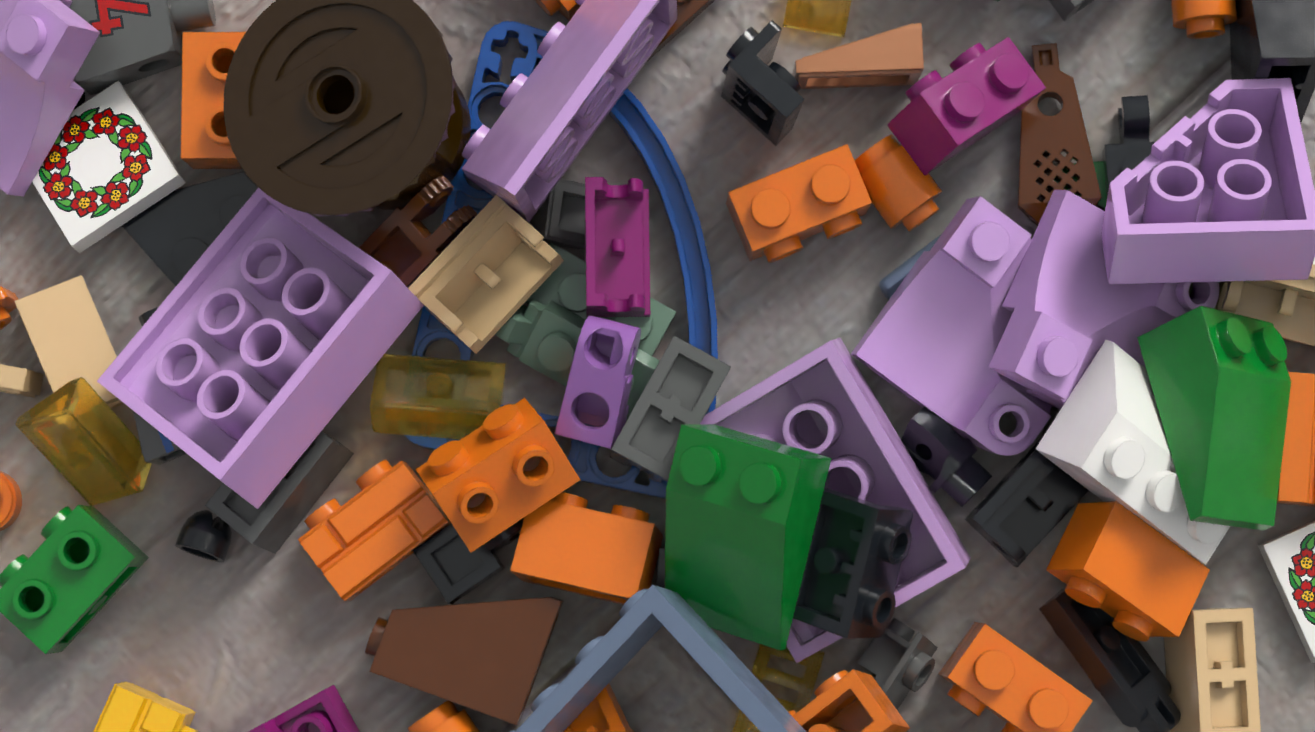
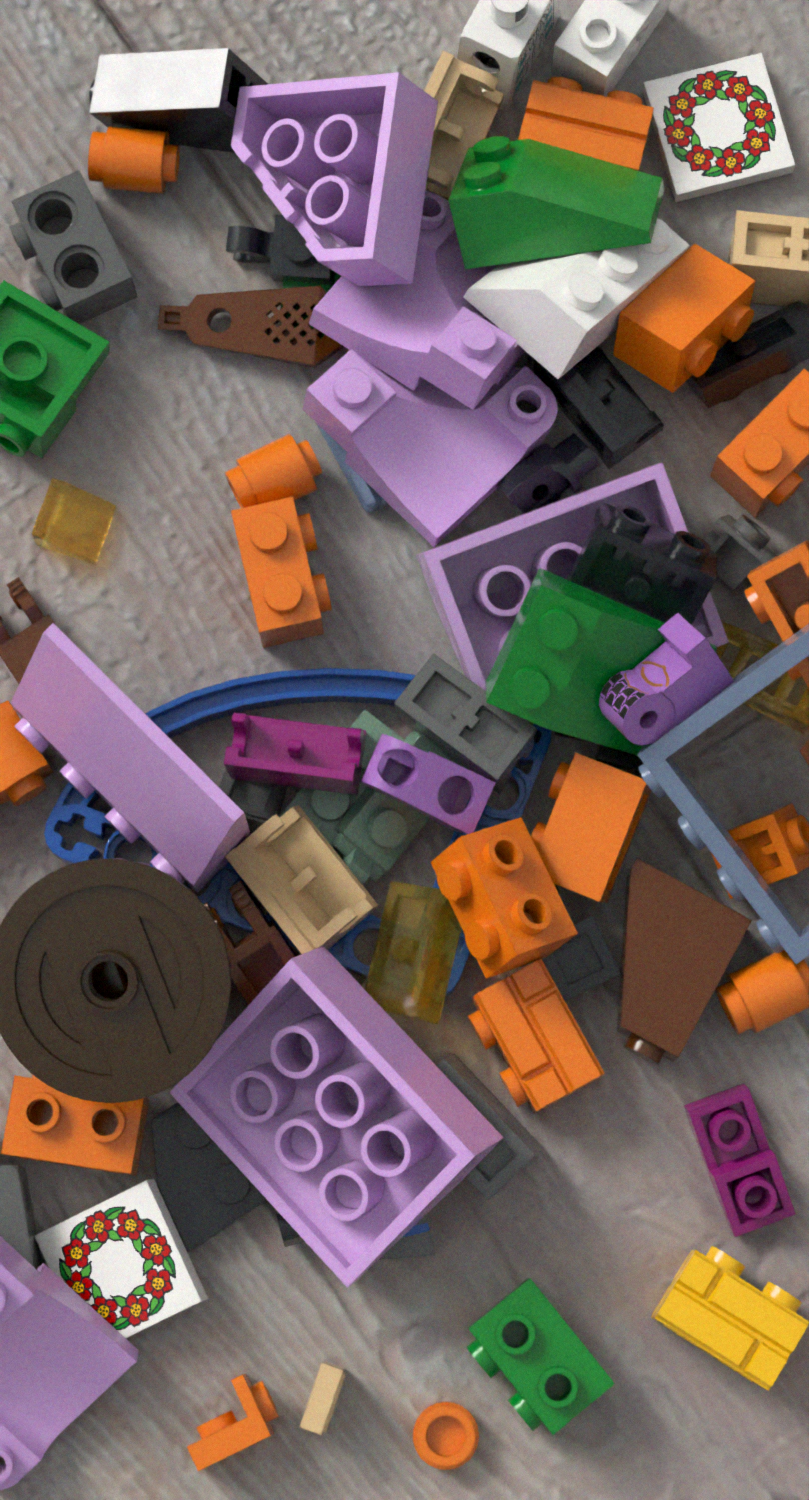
camera: 80 degrees left, 5 degrees down
(68, 336) = (305, 1321): tan hinge -> none
(86, 443) = (407, 1314): clear yellow slope -> none
(205, 536) = (516, 1212): black hinge -> none
(726, 601) = (664, 685): none -> medium lavender leg
(759, 91) = (164, 589): black bracket -> none
(875, 61) = (149, 472): nougat slope -> none
(966, 104) = (211, 395): magenta brick -> none

